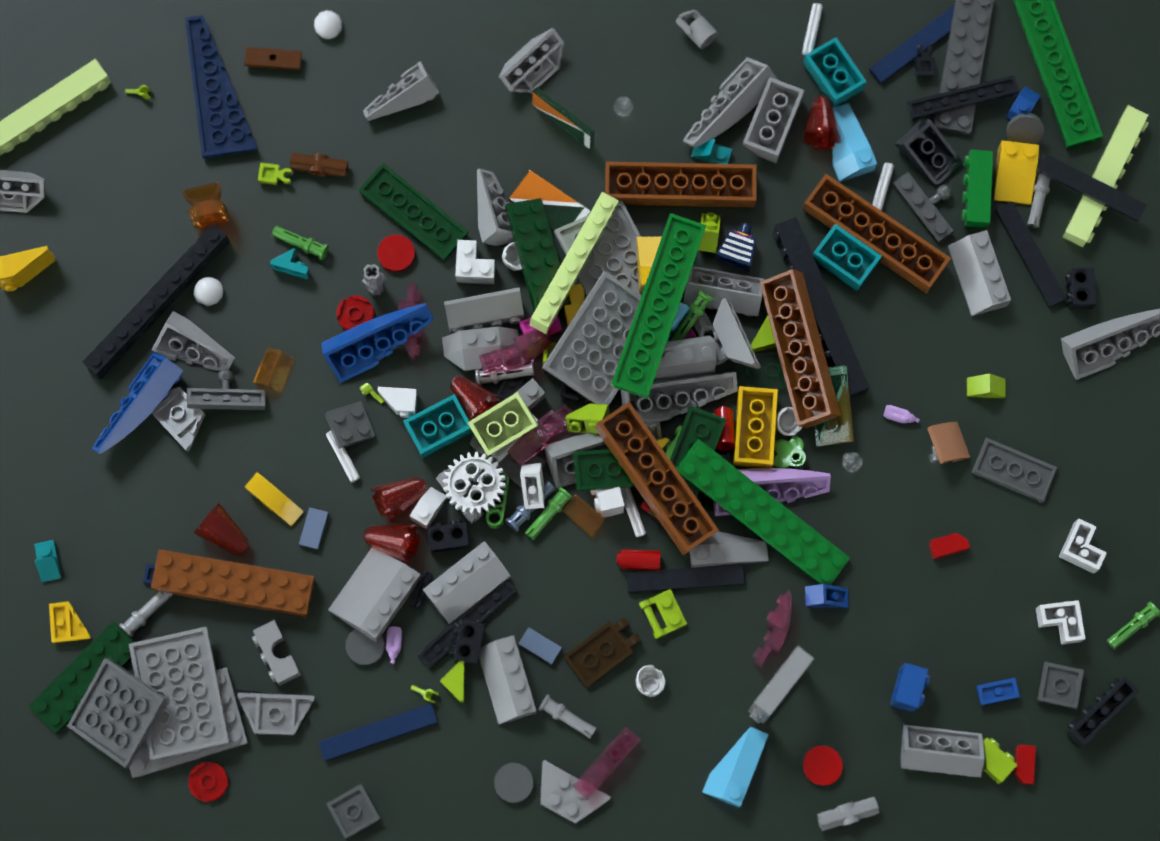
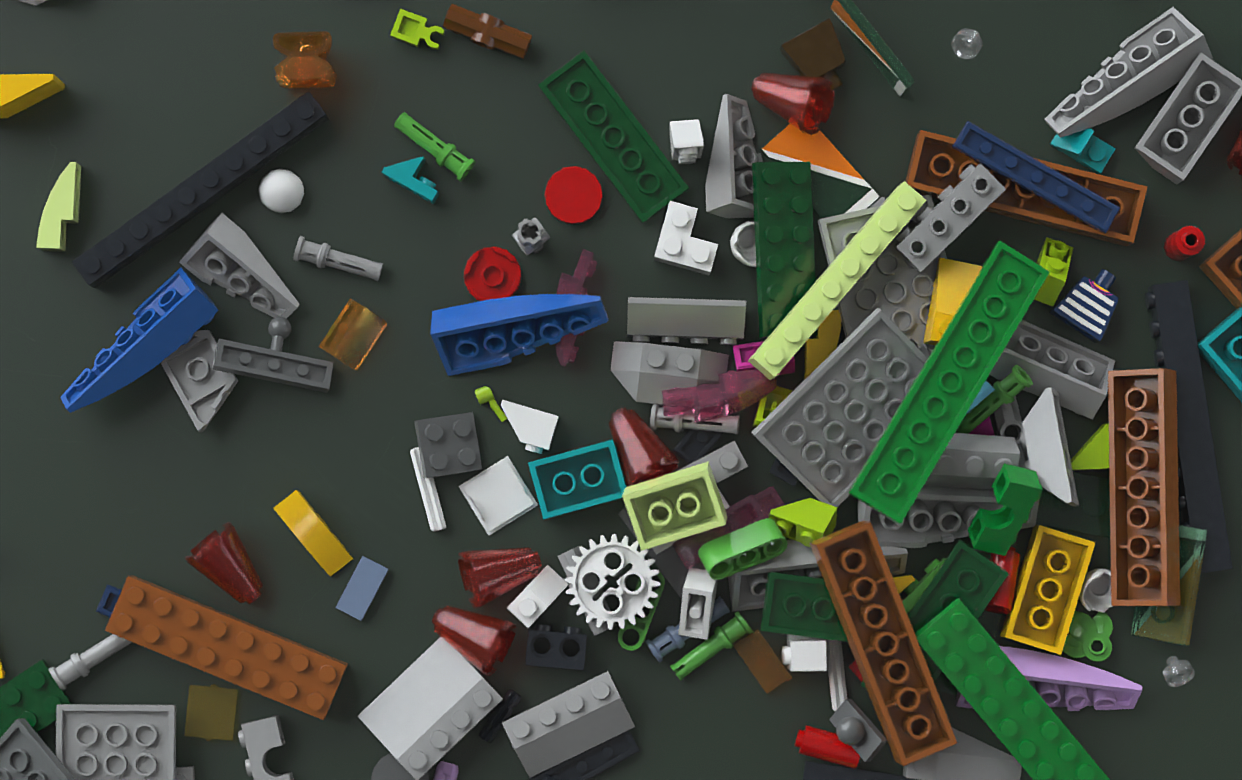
camera: 10 degrees right, 10 degrees up
(68, 334) = (60, 209): none -> yellowish green slope
(231, 631) = (211, 712): none -> clear yellow piece
(257, 325) = (324, 256): none -> light grey pin
(389, 451) = (498, 495): none -> white piece
(460, 203) = (686, 141): none -> white slope
(524, 161) = (796, 99): none -> clear red cone
(530, 133) = (816, 53): none -> dark brown torso
(552, 441) = (742, 549): none -> bright green beam
(636, 208) = (949, 217): none -> light grey brick
(654, 542) = (857, 730): none -> dark grey tile
(684, 173) = (1036, 177): none -> dark blue tile
(713, 395) = (998, 529): none -> green arch
(788, 195) = (1184, 243): none -> red brick

